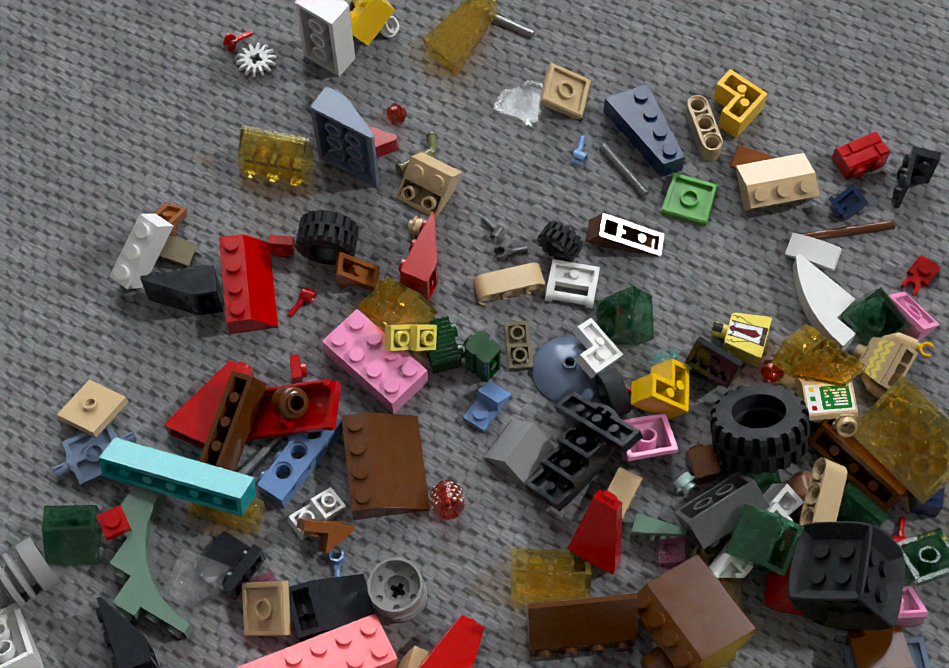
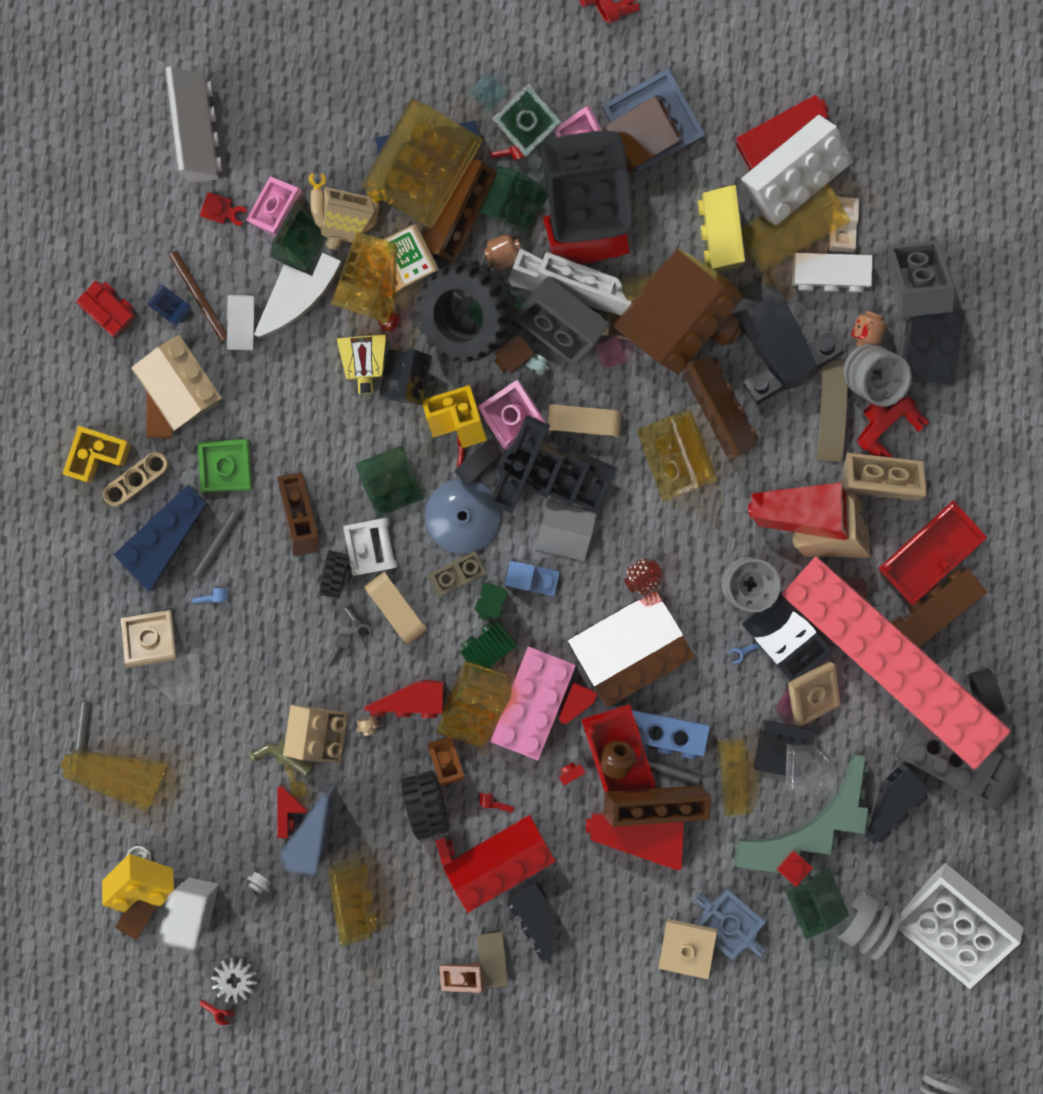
camera: 115 degrees left, 25 degrees up
(141, 250) = (515, 981): white brick -> none
(178, 476) = (731, 829): brick -> none
(322, 506) = (702, 692): white slope -> none
(330, 532) = (717, 671): dark orange slope -> none
(360, 390) = (576, 701): none -> red tile
(390, 155) = (297, 788): none -> clear yellow hand
(397, 111) = (243, 802): clear red plate -> none
(410, 337) = (503, 673): light yellow slope -> none
(600, 349) = (437, 490): white plate -> none
(600, 532) = (626, 422): red slope -> none
(651, 529) = (597, 381): sand green slope -> none
(663, 355) = (416, 427): clear light blue tile -> none
(764, 540) = (584, 269): clear green slope -> none
(824, 492) = (511, 231): tan beam -> none
(846, 425) = (430, 232): tan plate -> none
(917, 167) = (104, 251): black bracket -> none

